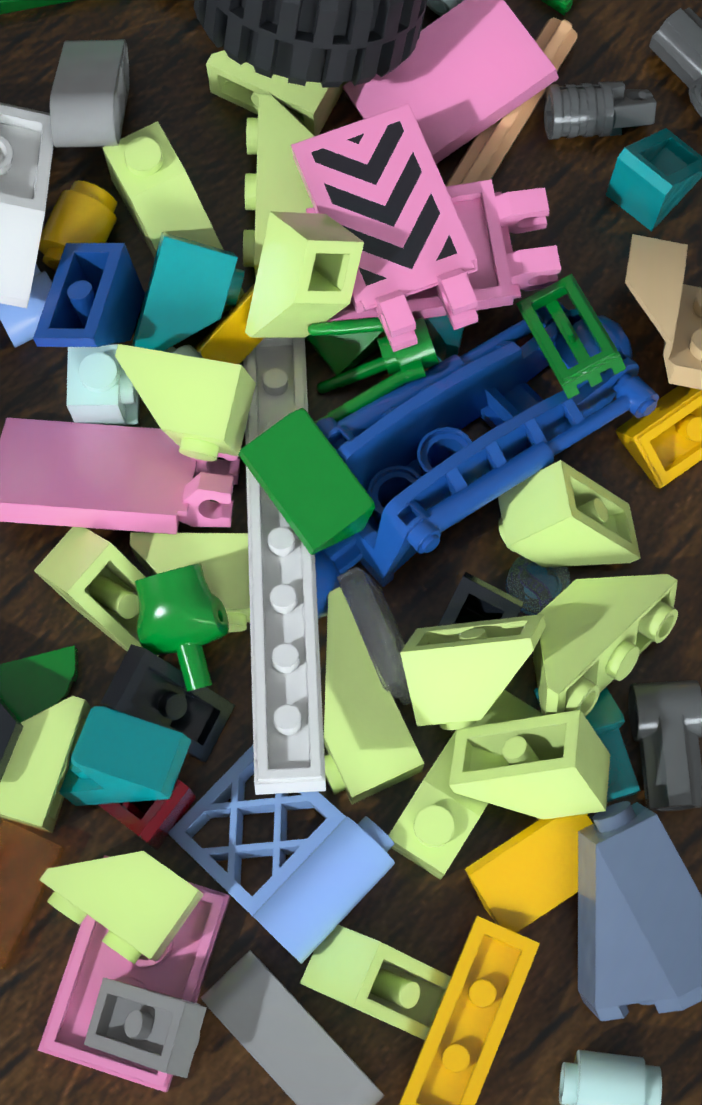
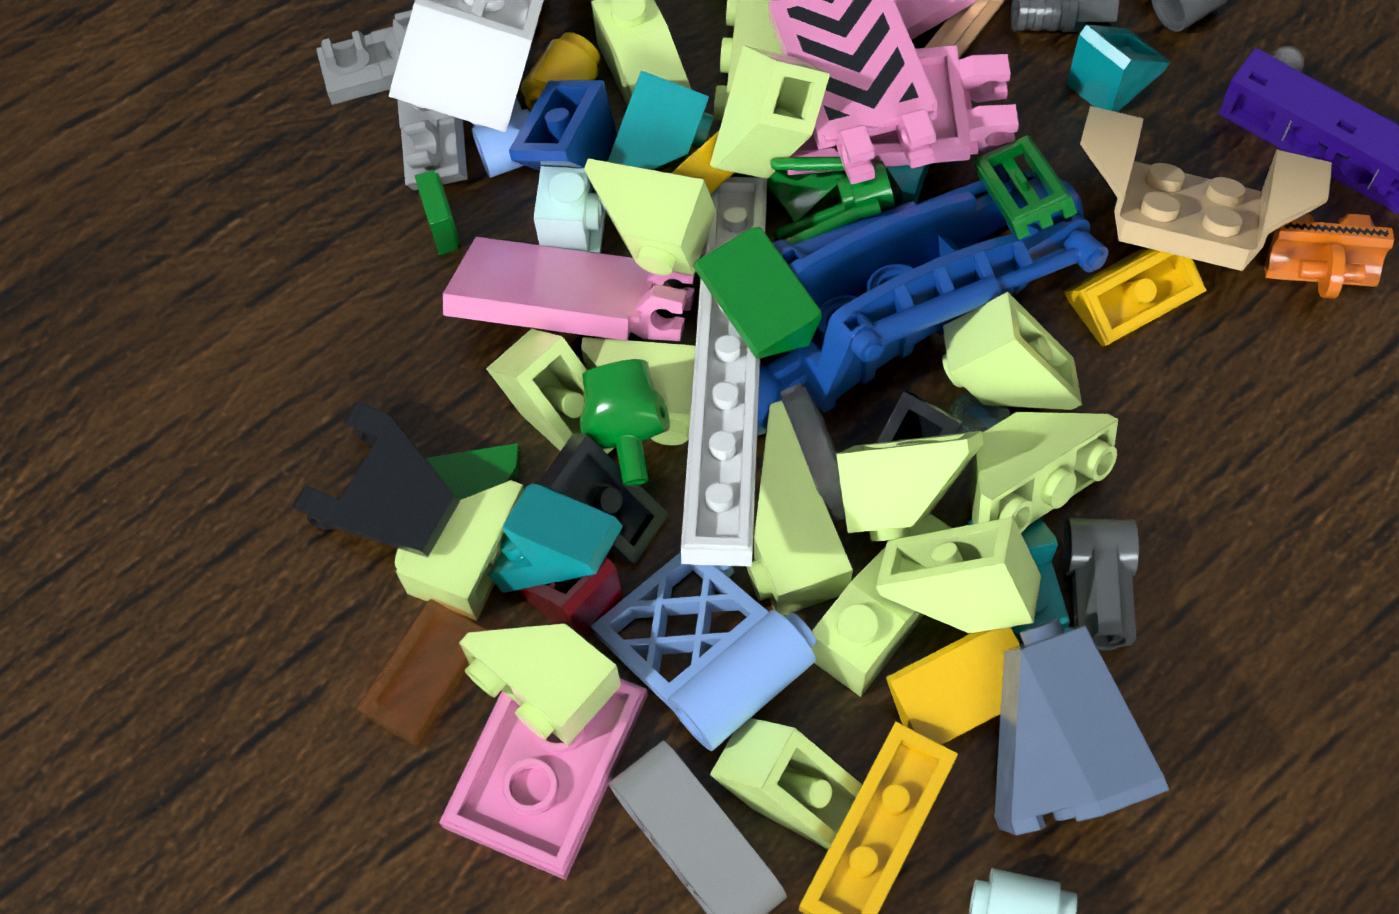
camera: 10 degrees right, 10 degrees down
(145, 1027) = (552, 800): light grey slope -> none

